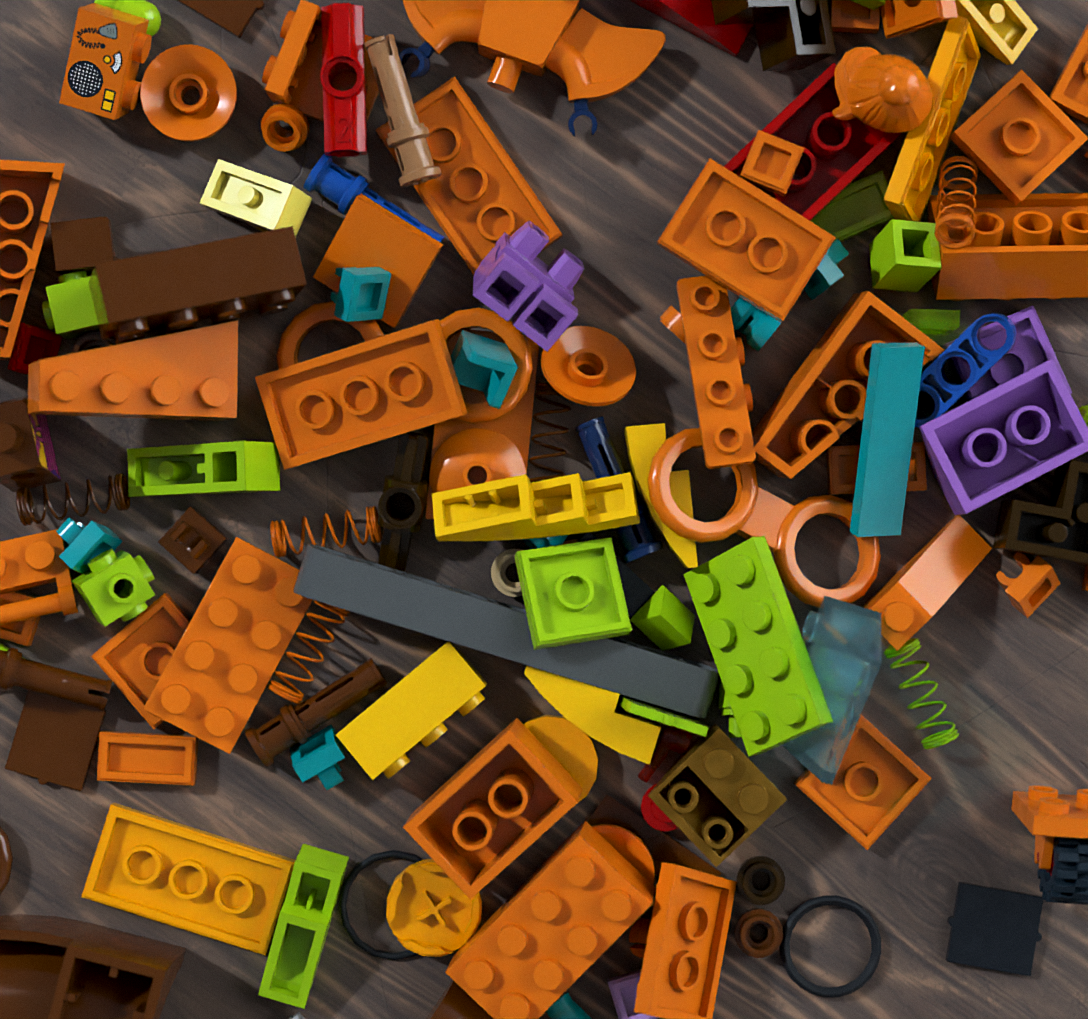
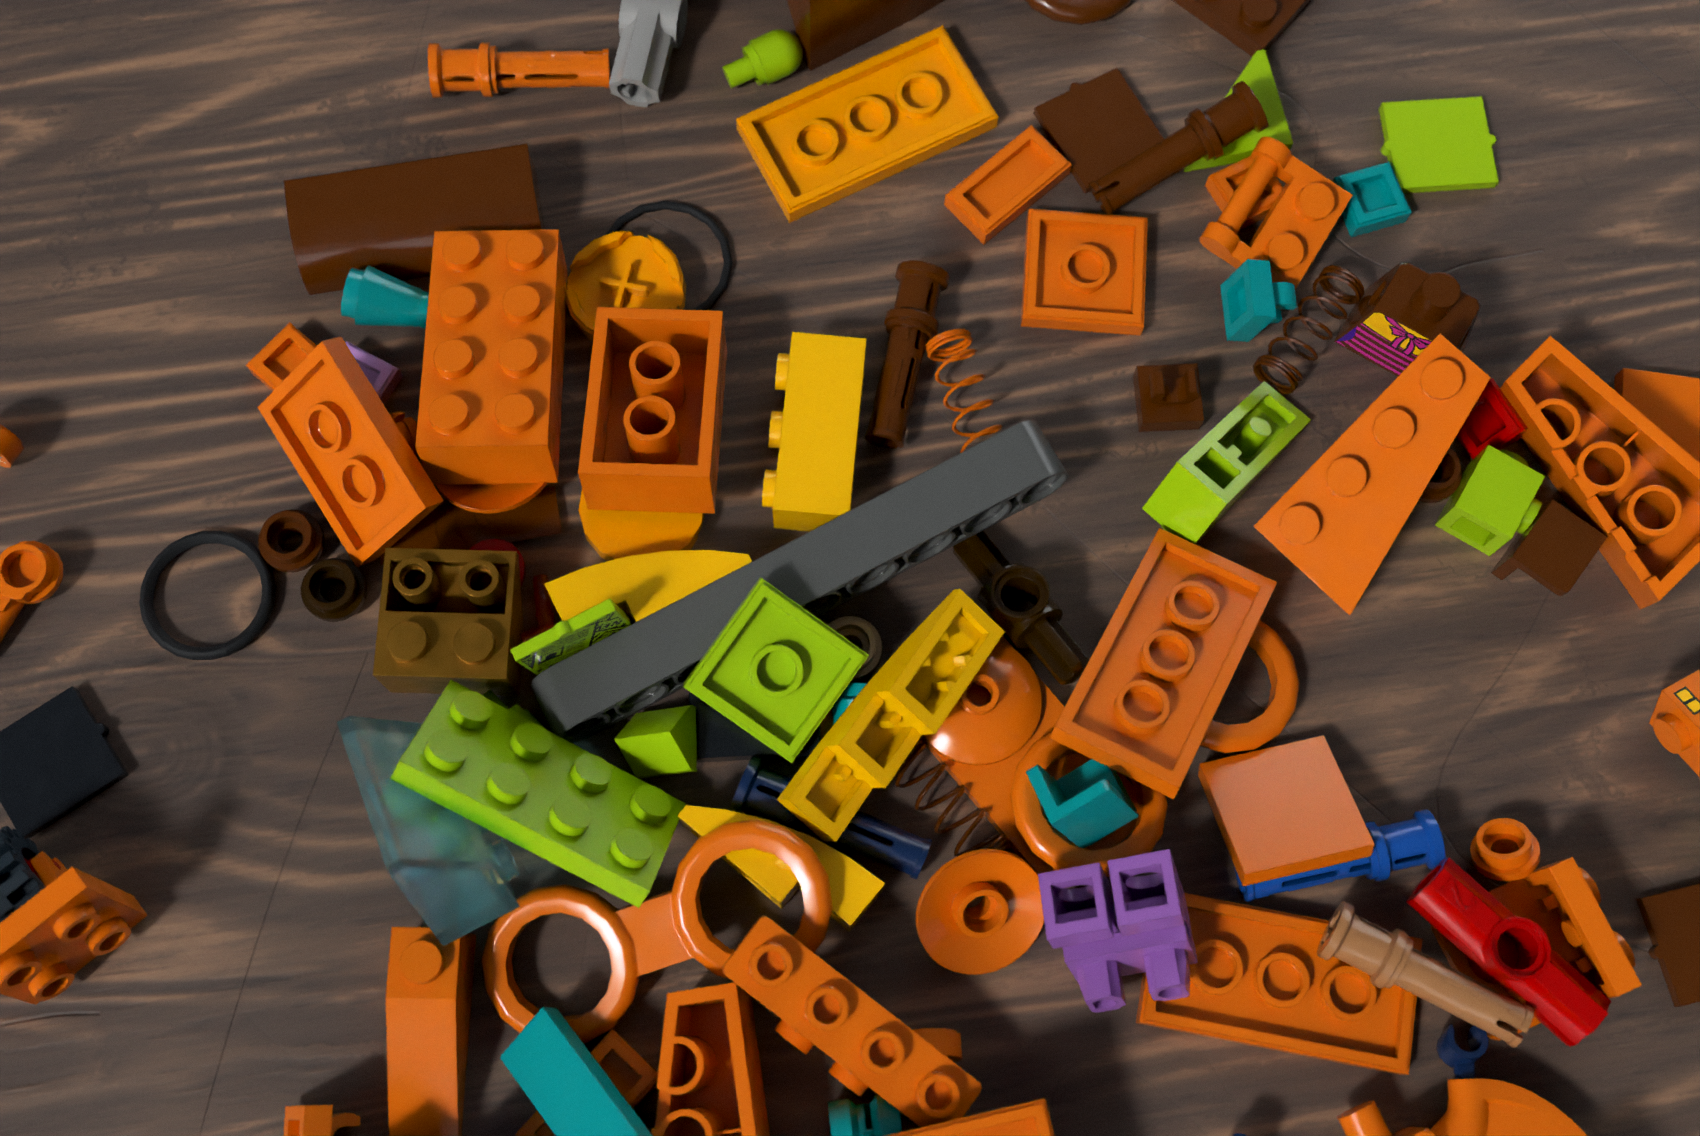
camera: 135 degrees right, 15 degrees down
(98, 583) = (1190, 265): lime brick -> none
(172, 76) = (1652, 784): orange dish -> none
(196, 284) = (1428, 602): reddish brown brick -> none
(209, 977) = (766, 59): none -> lime cylinder
(230, 647) = (1039, 332): orange plate -> none
(255, 198) = (1451, 752): light yellow plate -> none
(280, 533) = (1089, 472): orange piece -> none
(303, 925) = (729, 171): lime slope -> none
(319, 757) = (859, 312): teal tile -> none
(361, 293) = (1267, 757): teal tile -> none
(869, 787) = (303, 781): orange tile -> none
(939, 738) = (279, 877): lime piece -> none

